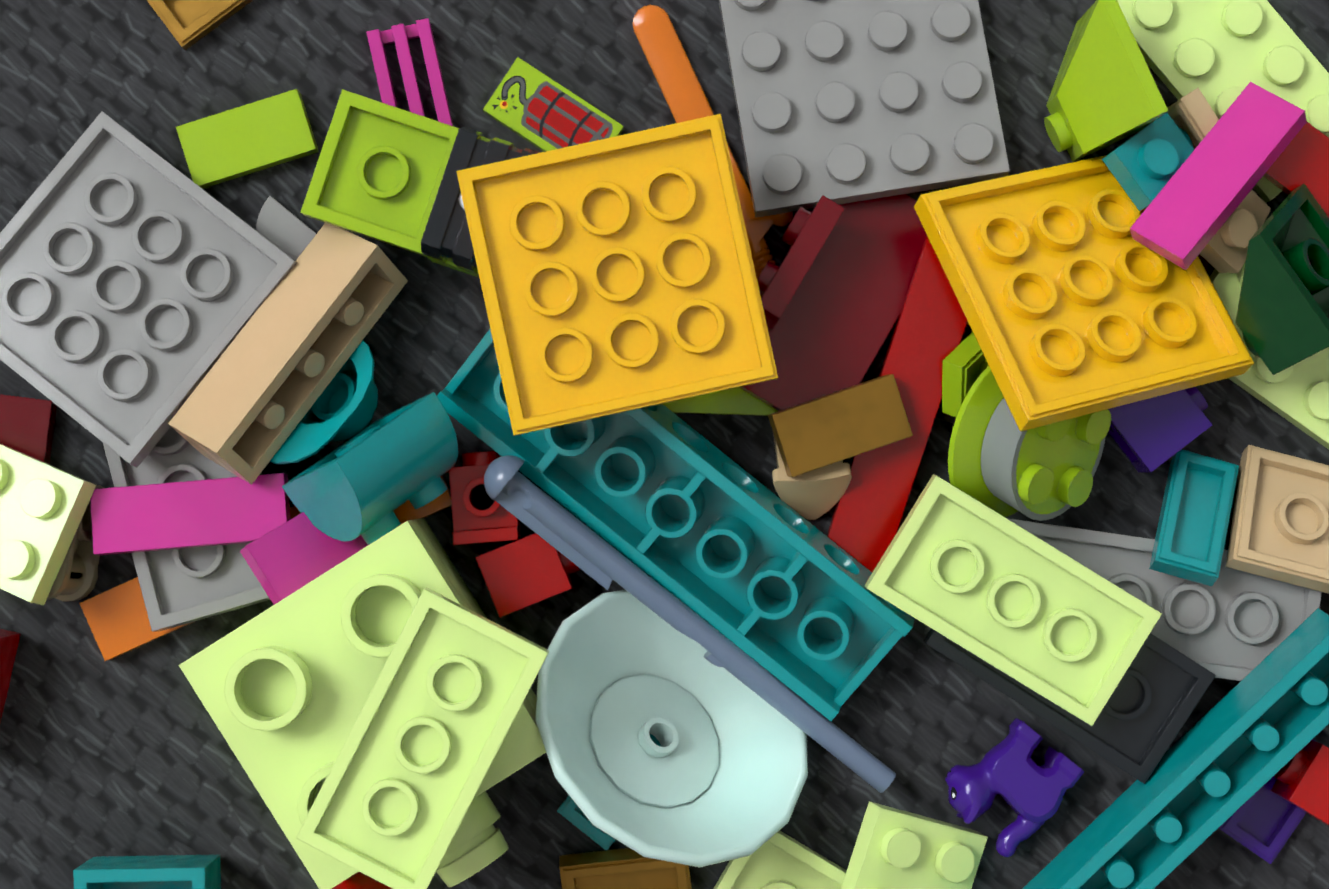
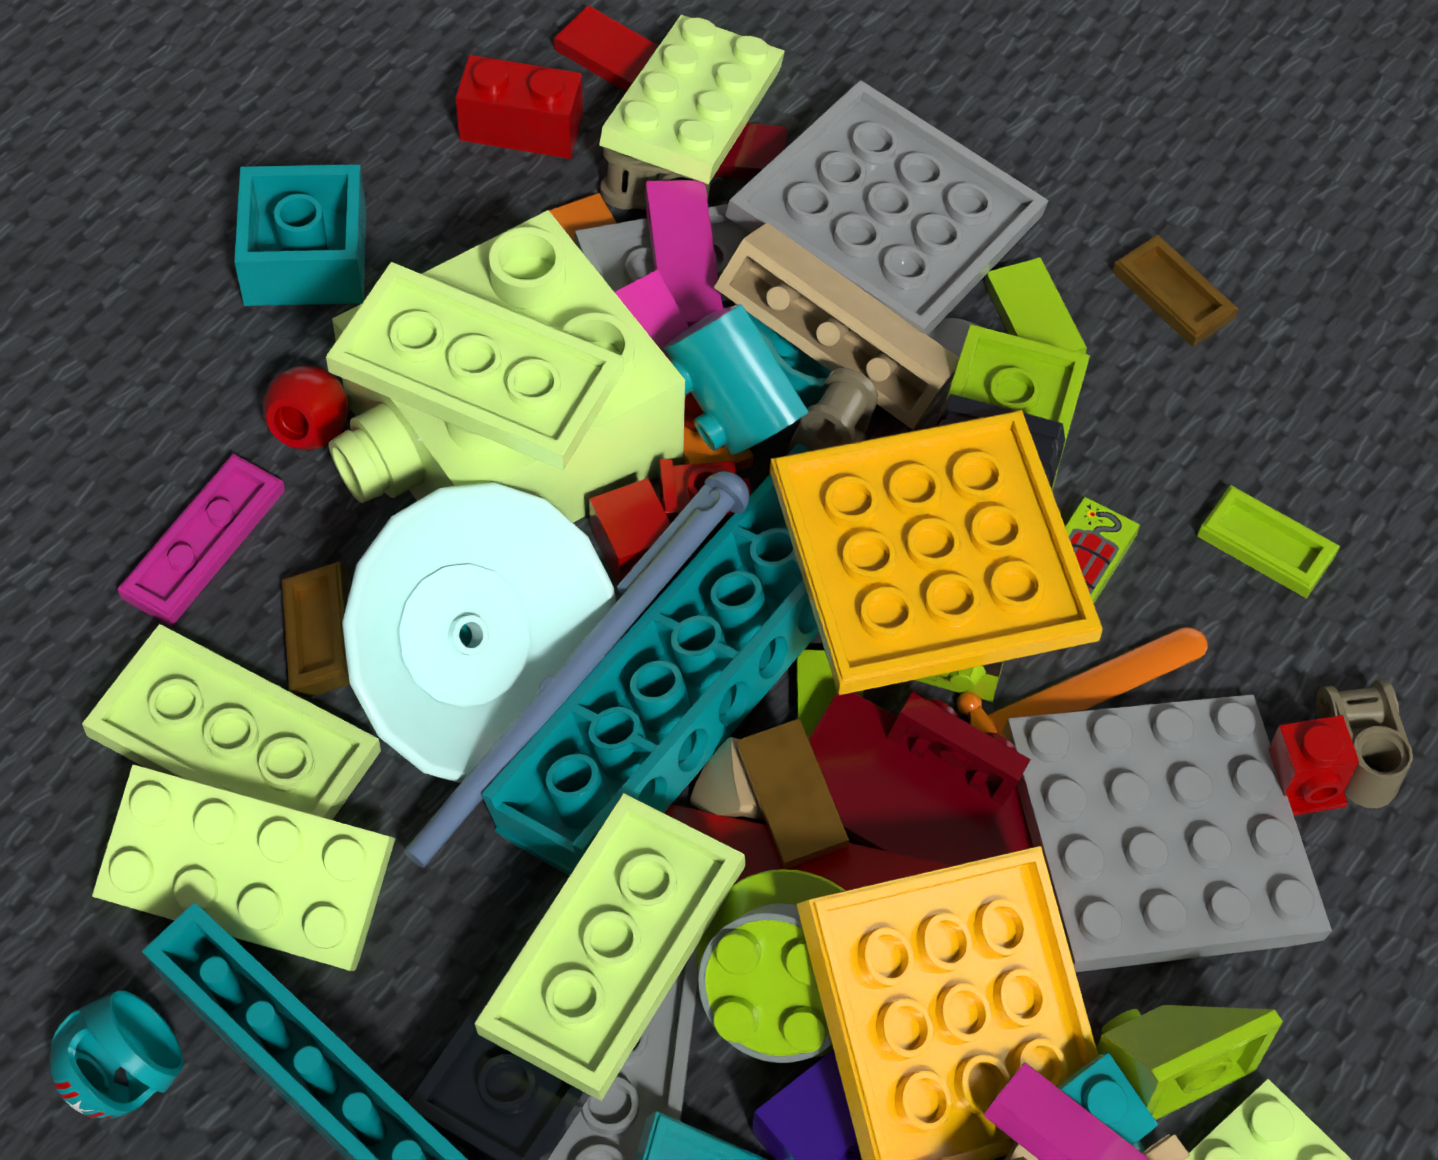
camera: 90 degrees right, 30 degrees down
(400, 35) = (1137, 428): dark pink tile -> none
(411, 362) = (840, 412): none -> dark tan piece
(1009, 771) = (412, 997): dark purple animal -> none

